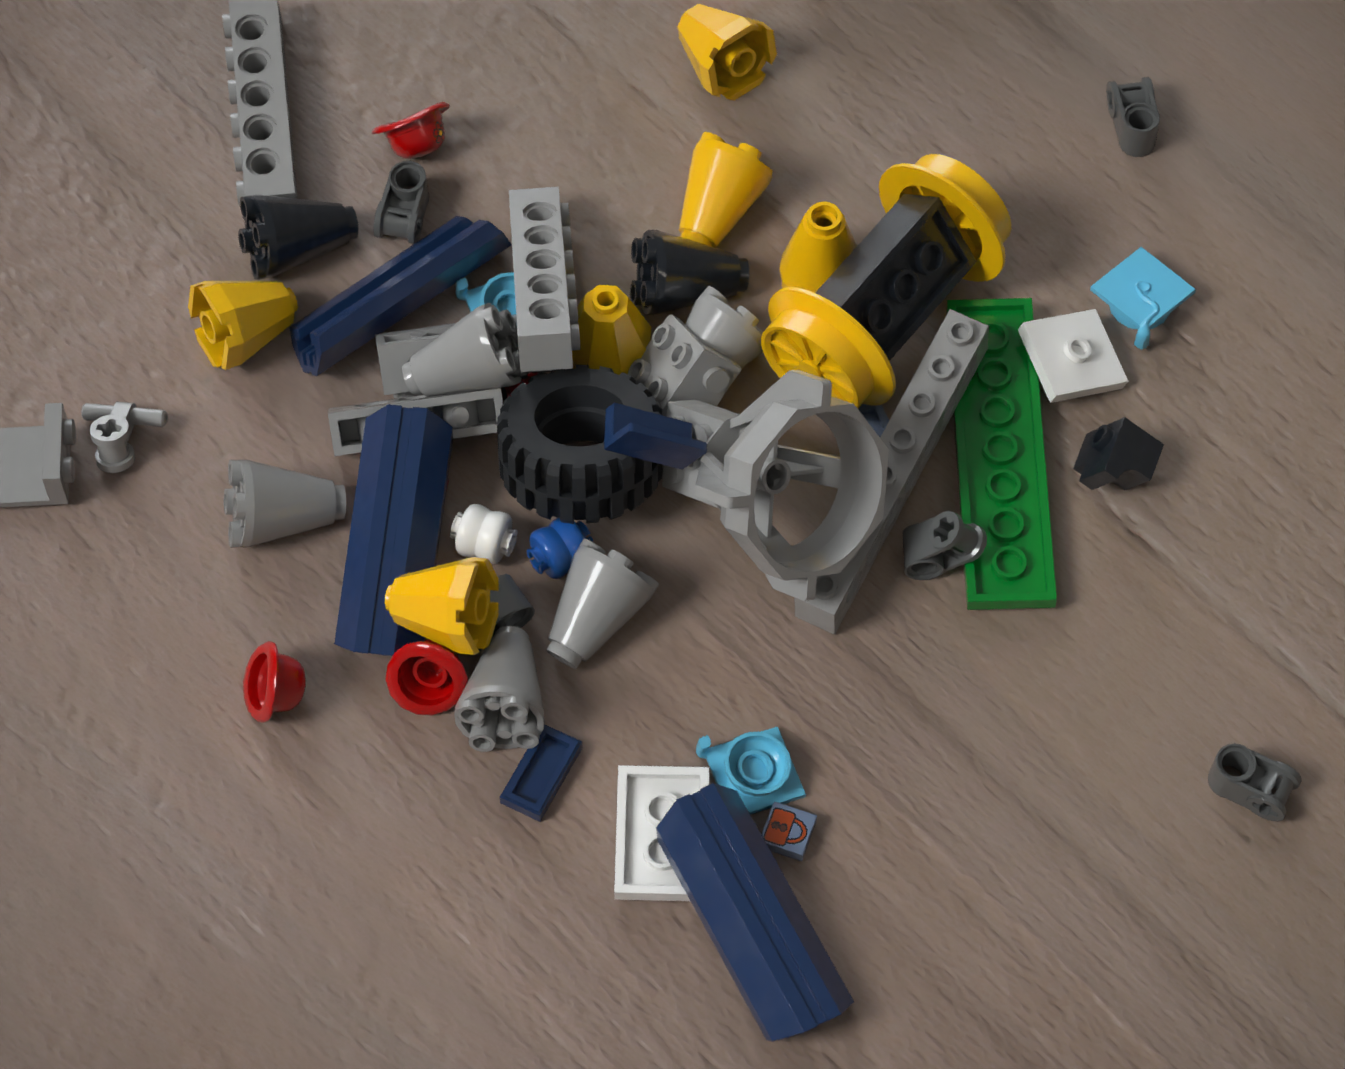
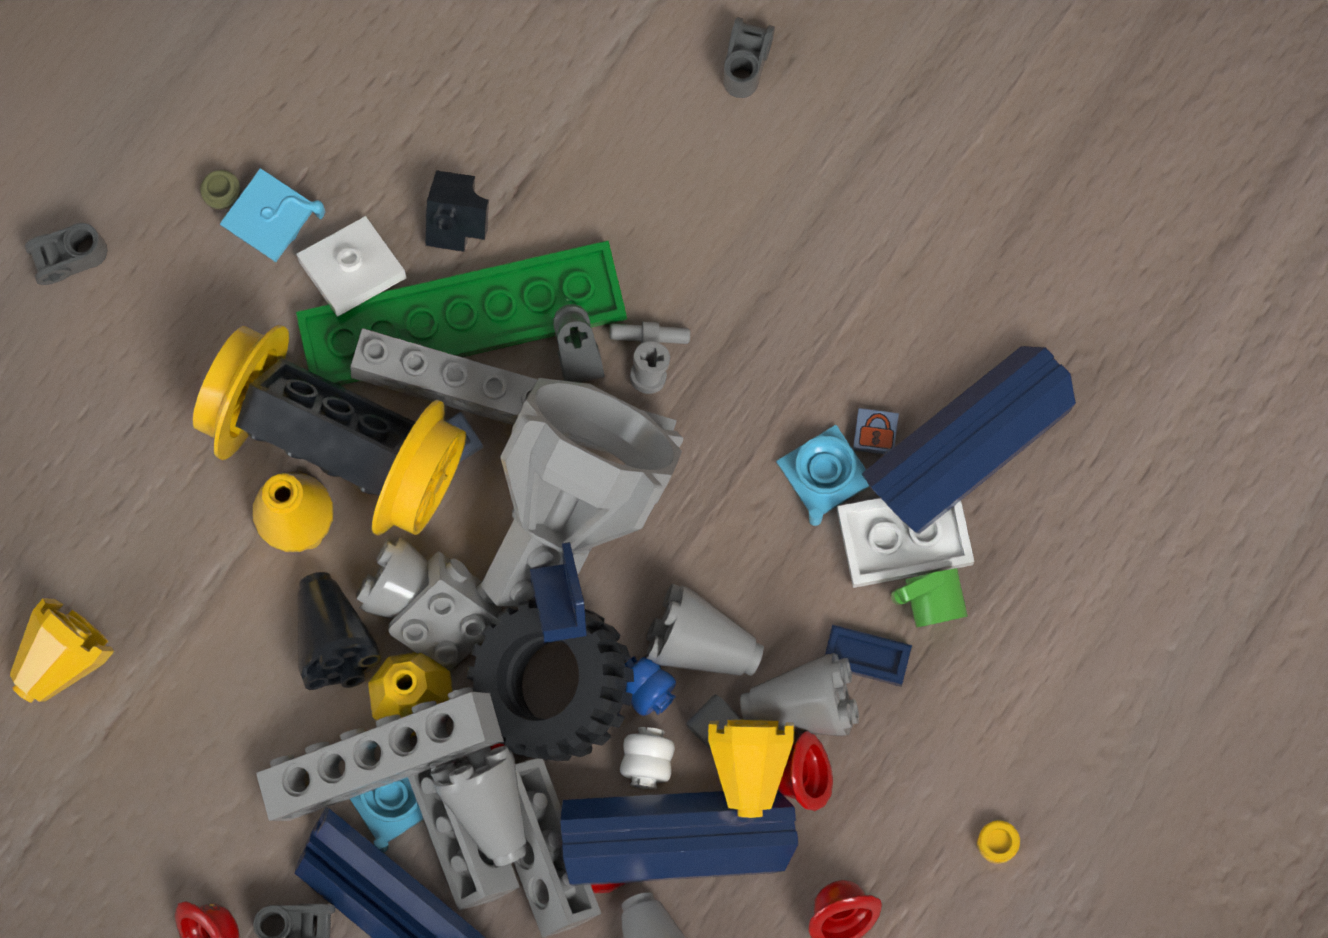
camera: 100 degrees left, 15 degrees up
(306, 860) = (998, 842): none -> yellow tile
(583, 839) = (933, 597): none -> bright green piece
(720, 188) = (233, 619): yellow cone -> none
(922, 618) = (650, 357): none -> light grey piece
(1182, 256) = (220, 189): none -> olive plate

